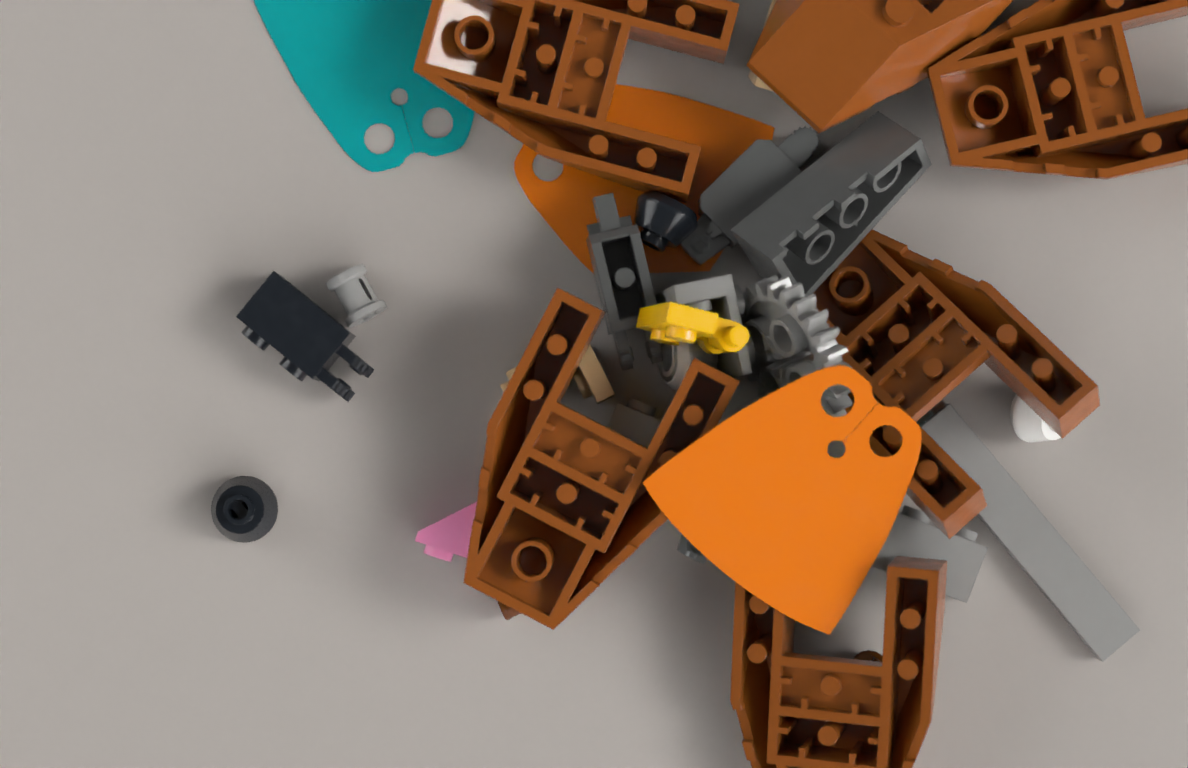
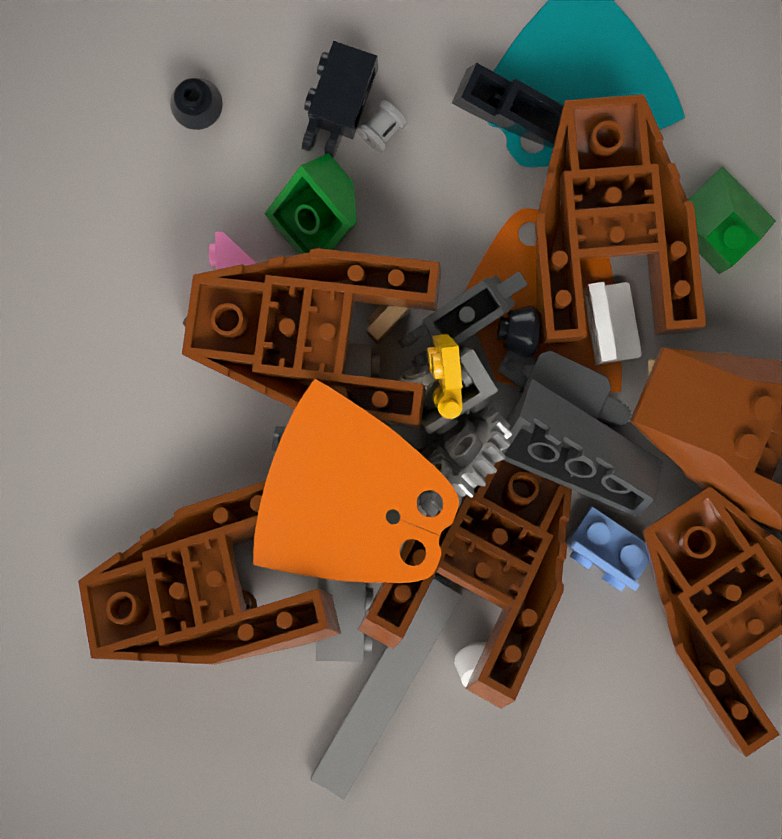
camera: 70 degrees right, 0 degrees up
(387, 135) = (509, 105): none -> black slope
(429, 410) = (315, 206): none -> green slope
(691, 108) = (612, 322): none -> white panel
(955, 210) = (610, 548): none -> light blue bracket

